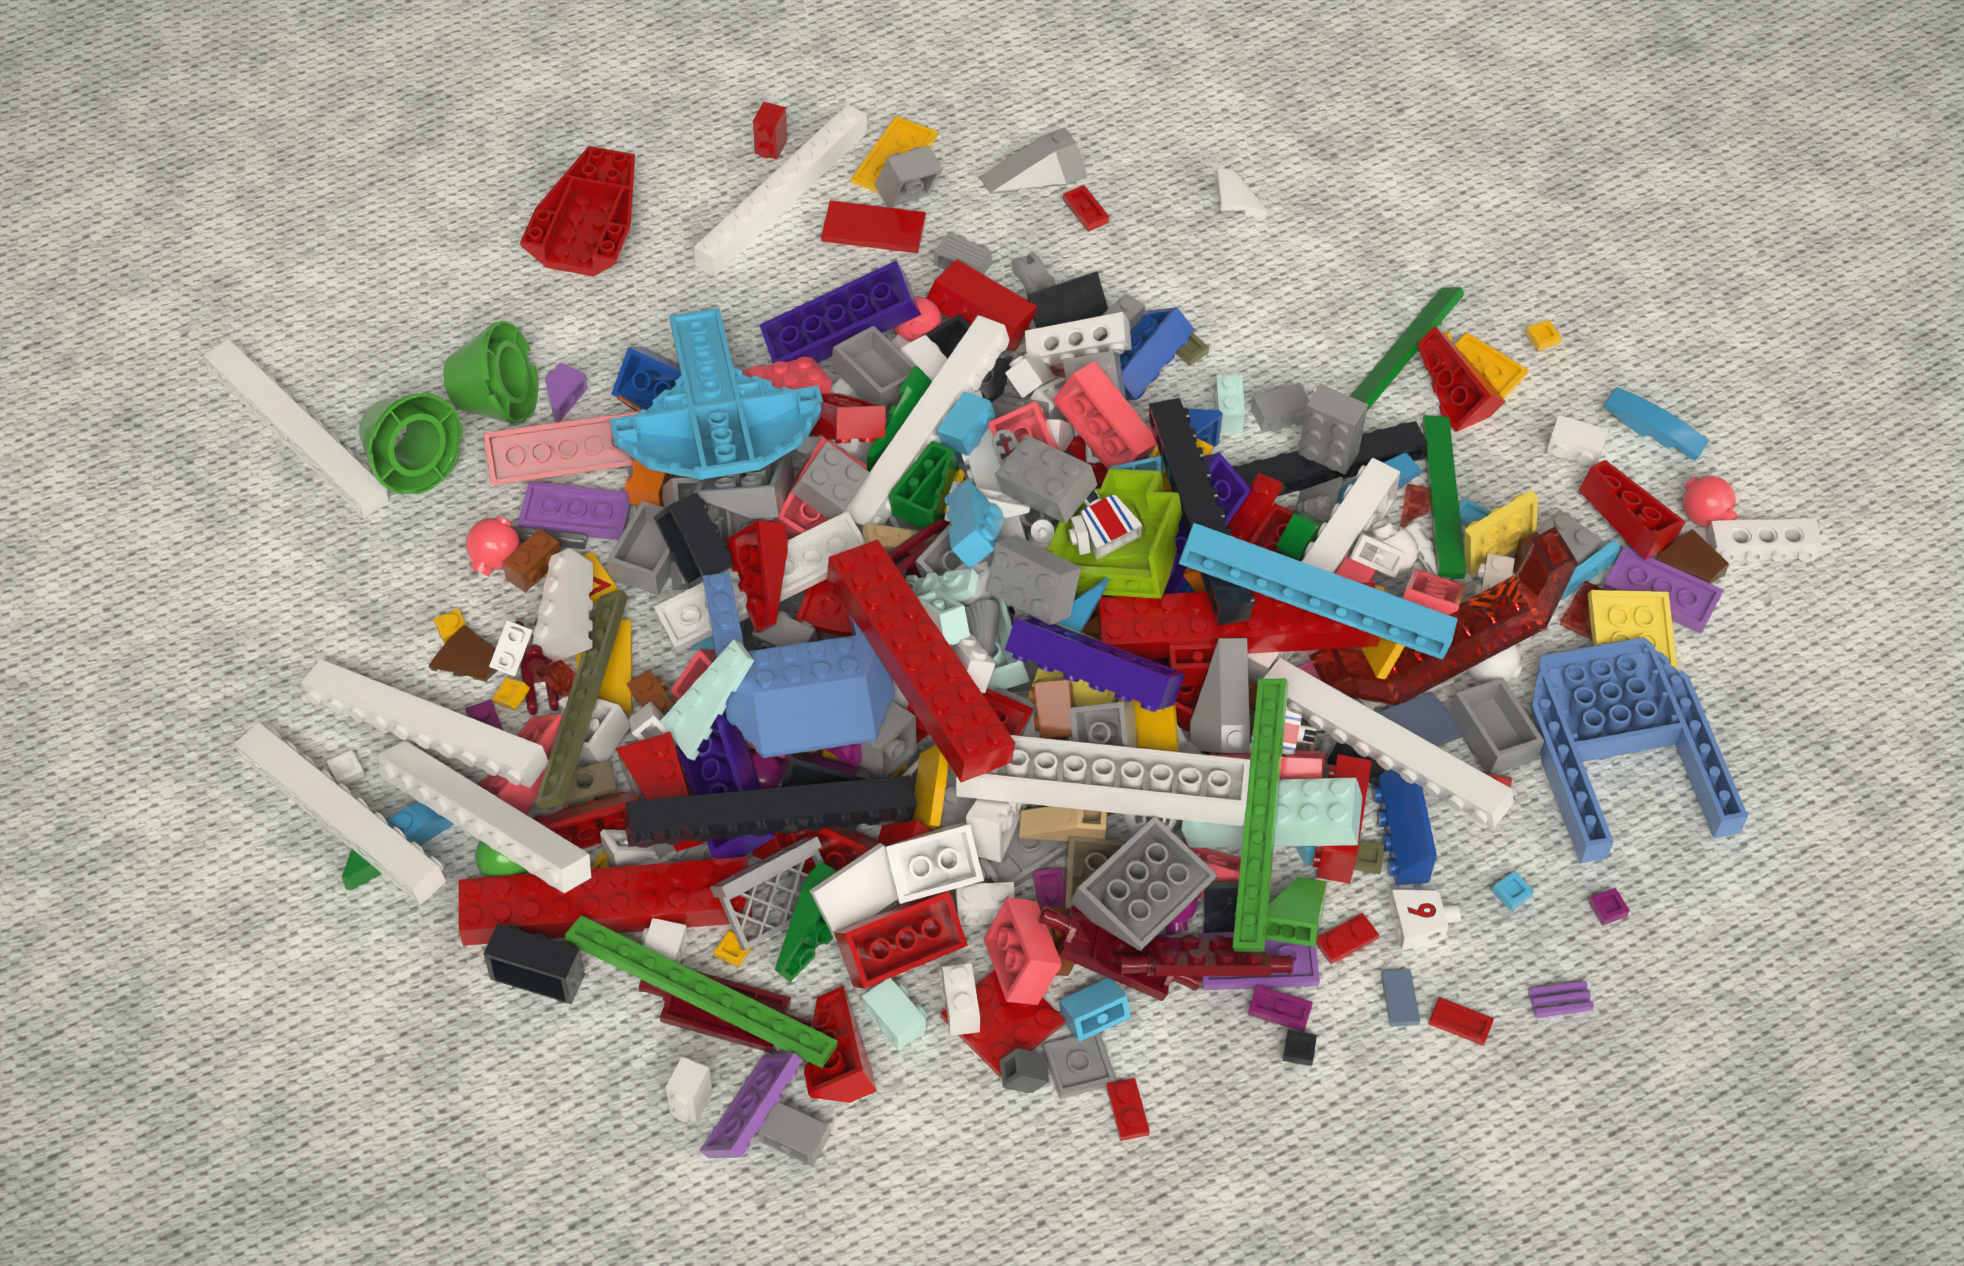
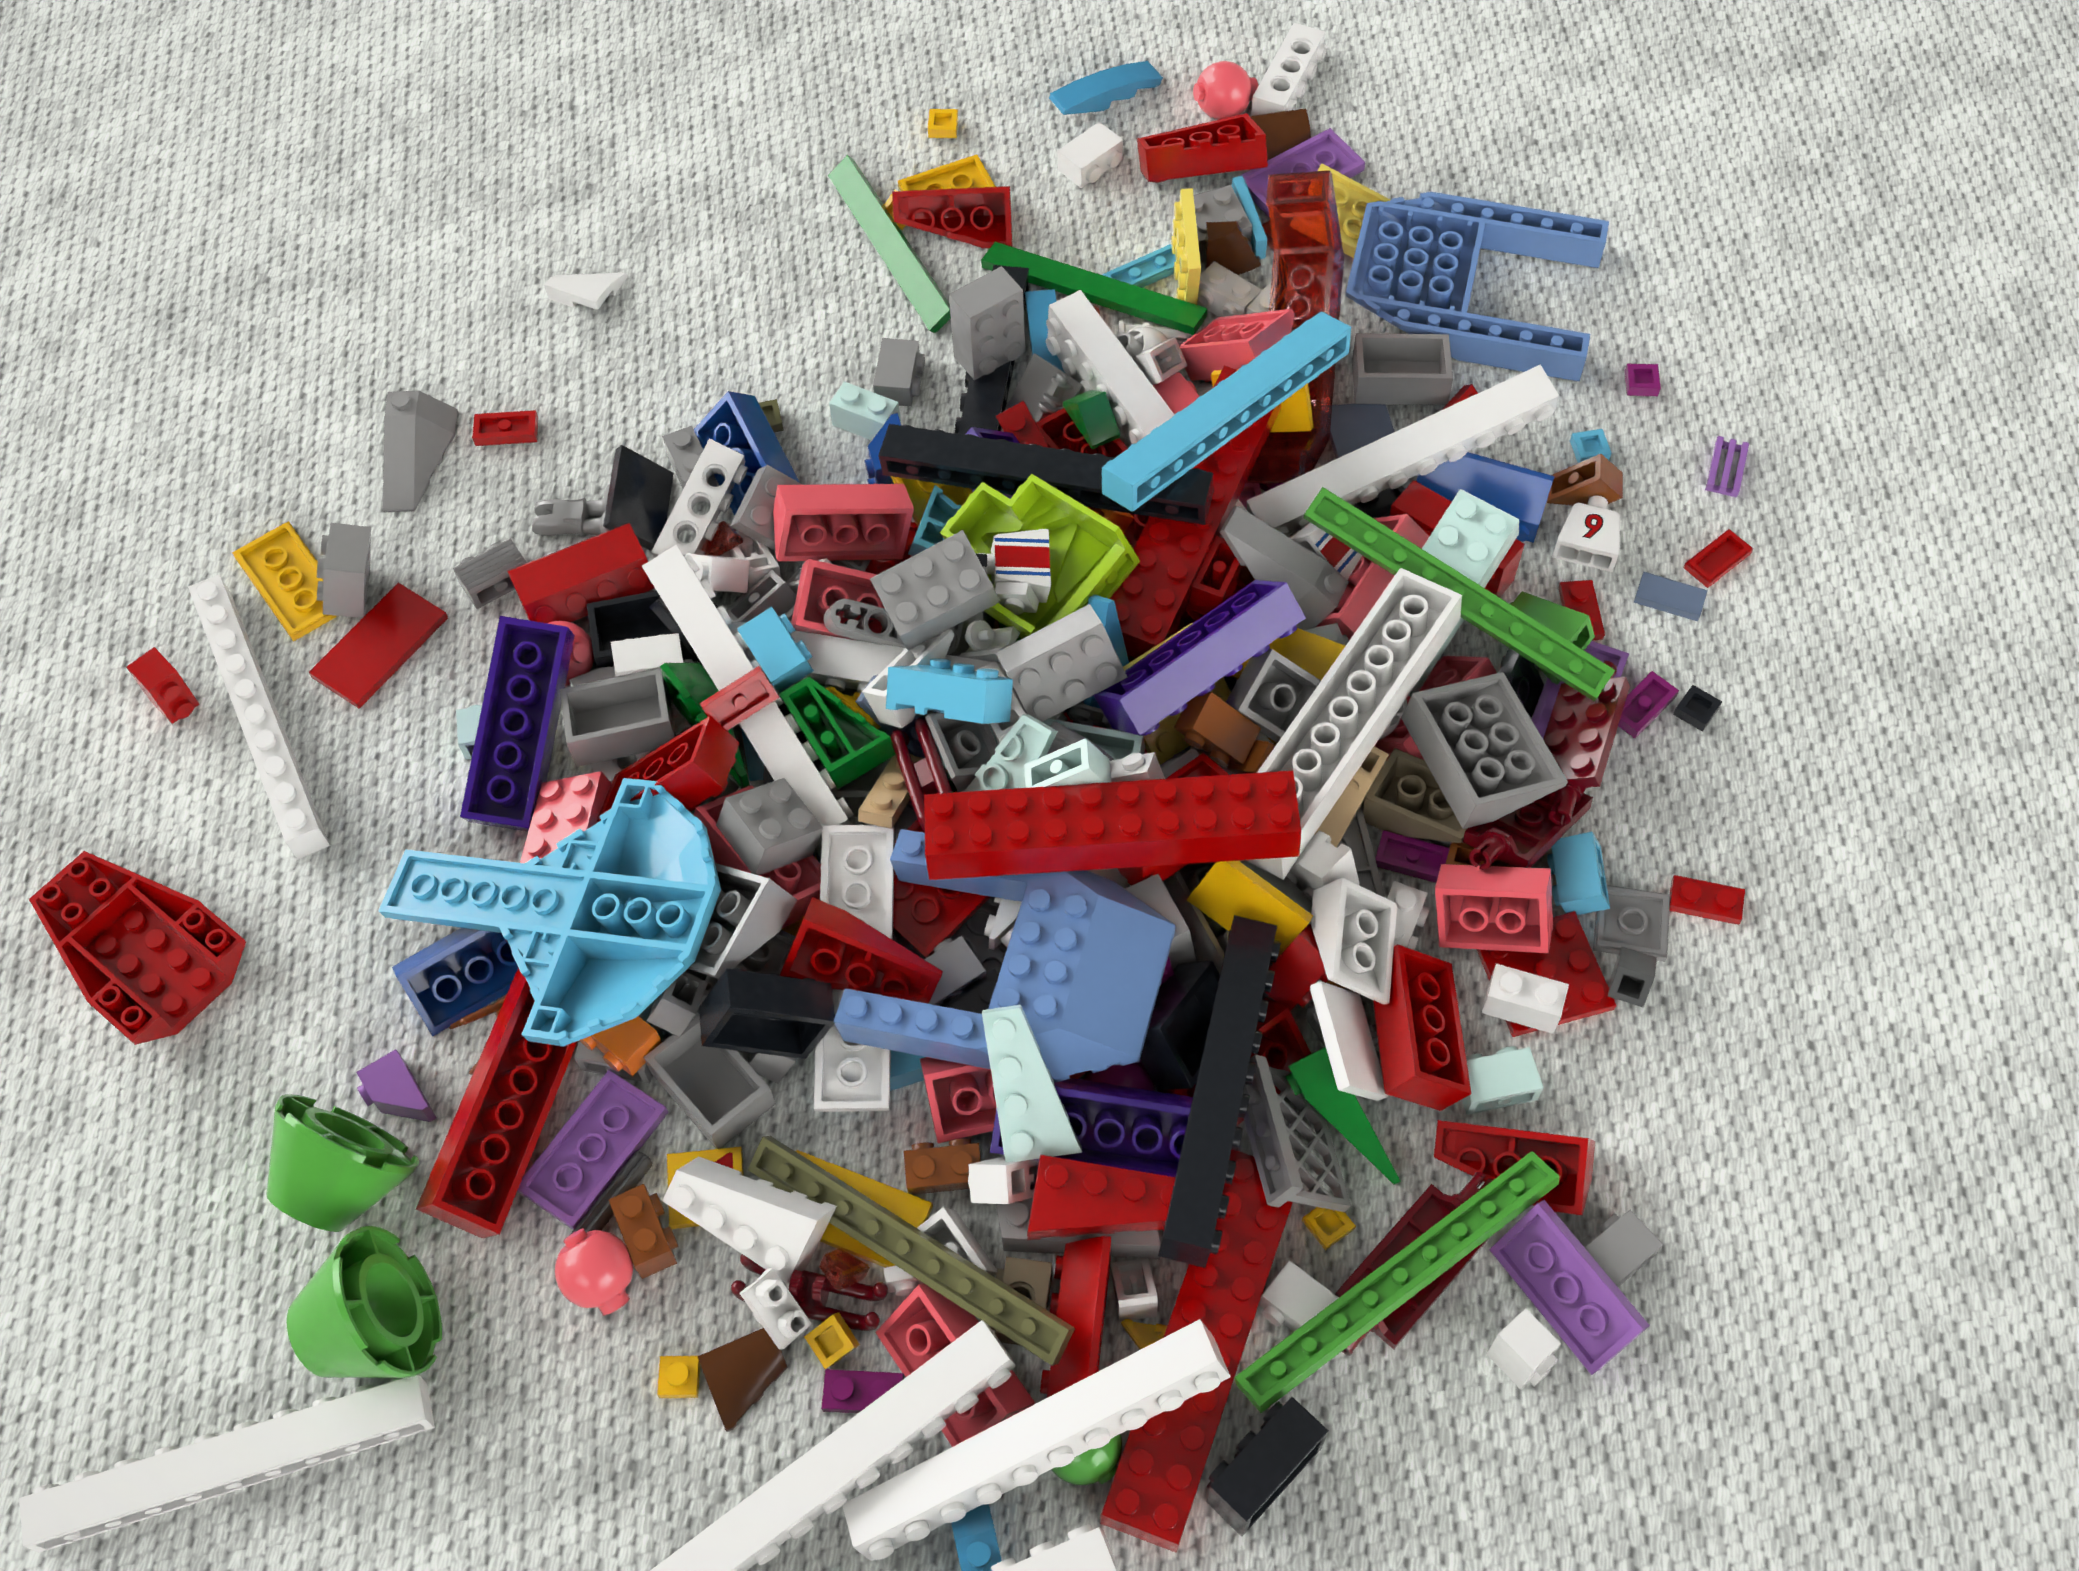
camera: 60 degrees left, 5 degrees up
(909, 418) = (740, 699): none -> plate
(1472, 898) = (1587, 479): none -> dark orange slope

